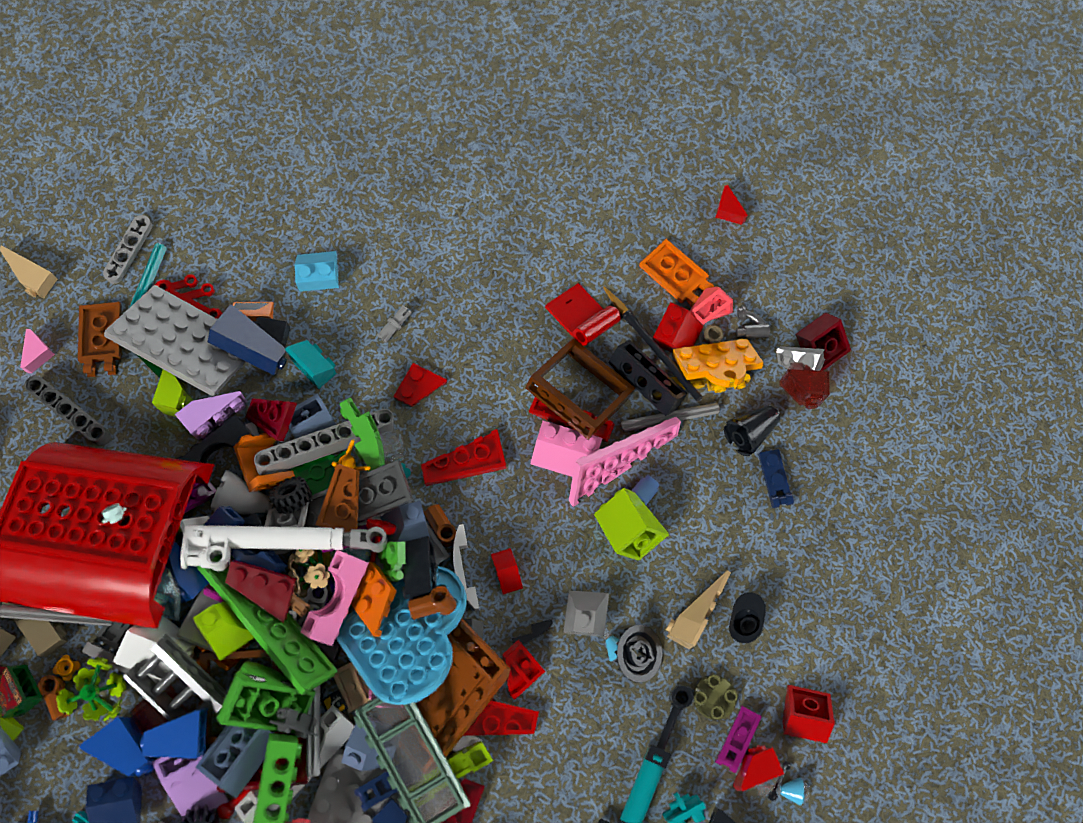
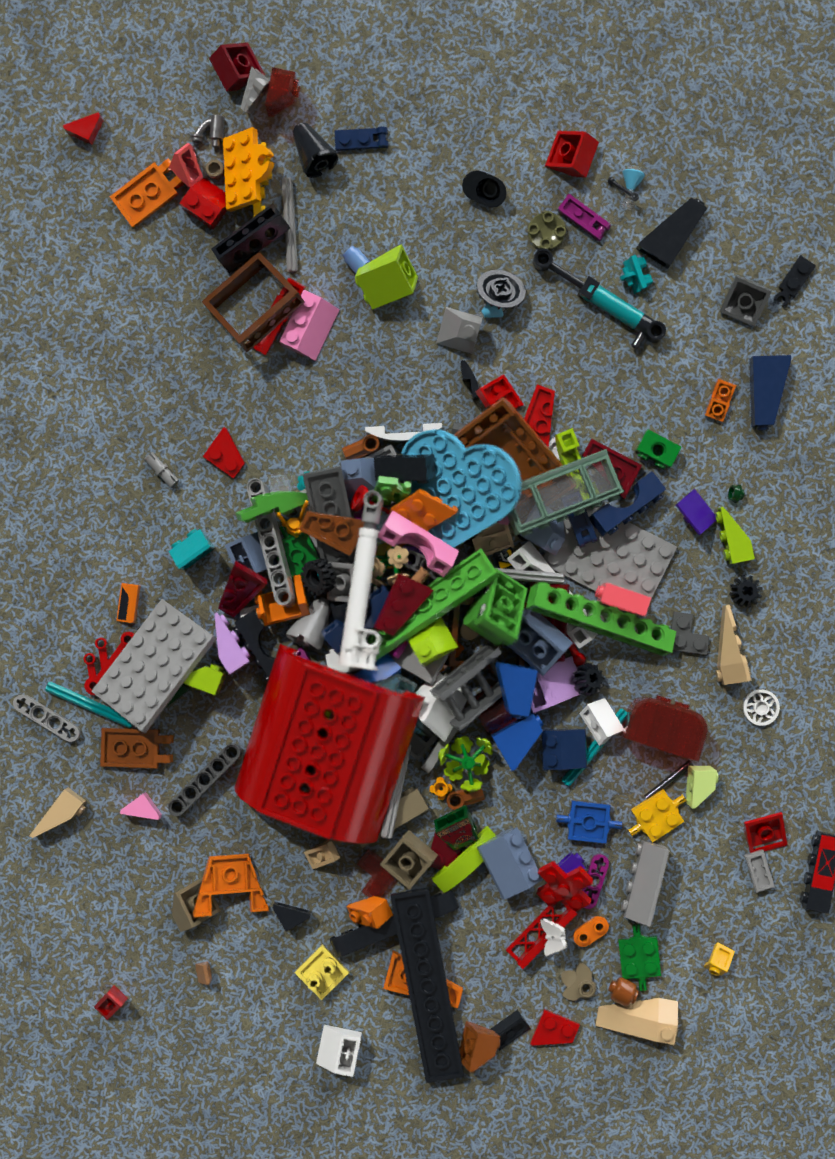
camera: 75 degrees left, 15 degrees up
(113, 513) = (323, 721): light aqua plate -> none
(247, 341) = (163, 605): dark blue slope -> none
(276, 329) = (153, 582): black slope -> none
(287, 721) = (520, 586): dark grey hinge -> none
(316, 271) = (95, 537): medium azure slope -> none
(437, 601) = (438, 458): dark orange piece -> none
(473, 459) = (304, 415): red wing -> none
(507, 571) = (410, 395): red slope -> none
(582, 314) = (179, 289): red door -> none
(615, 459) = (325, 280): bright pink wing -> none
(633, 321) = (192, 242): black piece -> none
(691, 622) = (481, 238): tan wedge -> none
(757, 768) = (611, 205): red slope -> none

